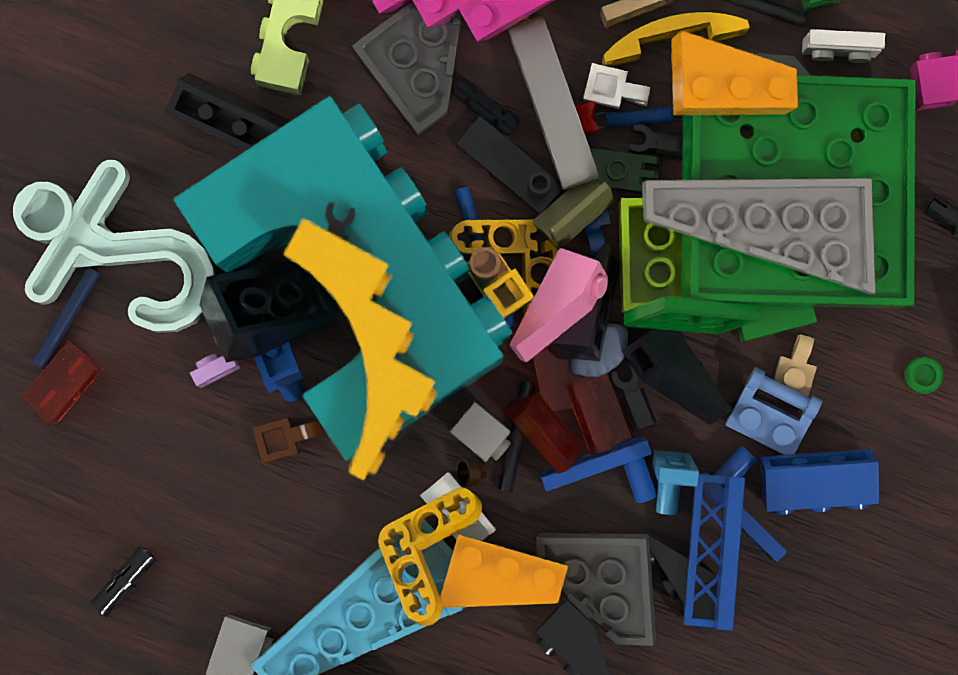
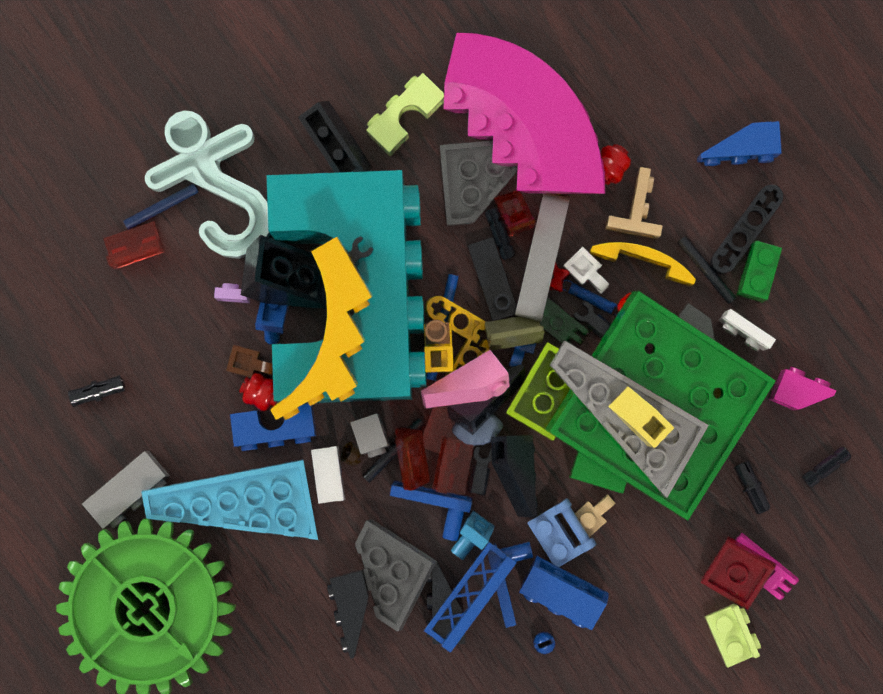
camera: 35 degrees right, 0 degrees up
(318, 463) = (258, 392): none -> red piece
(335, 518) = (249, 430): none -> blue arch
(416, 540) = (288, 477): yellow beam -> none
(488, 71) = (514, 212): none -> clear red slope
(499, 576) = (327, 529): light orange wedge -> none
(692, 315) = (546, 442): green tile -> none
(728, 81) = (655, 310): light orange wedge -> none
(790, 216) = (641, 417): none -> light yellow slope
(824, 549) = (542, 637): none -> blue hinge
(923, 375) = (670, 567): green tile -> none

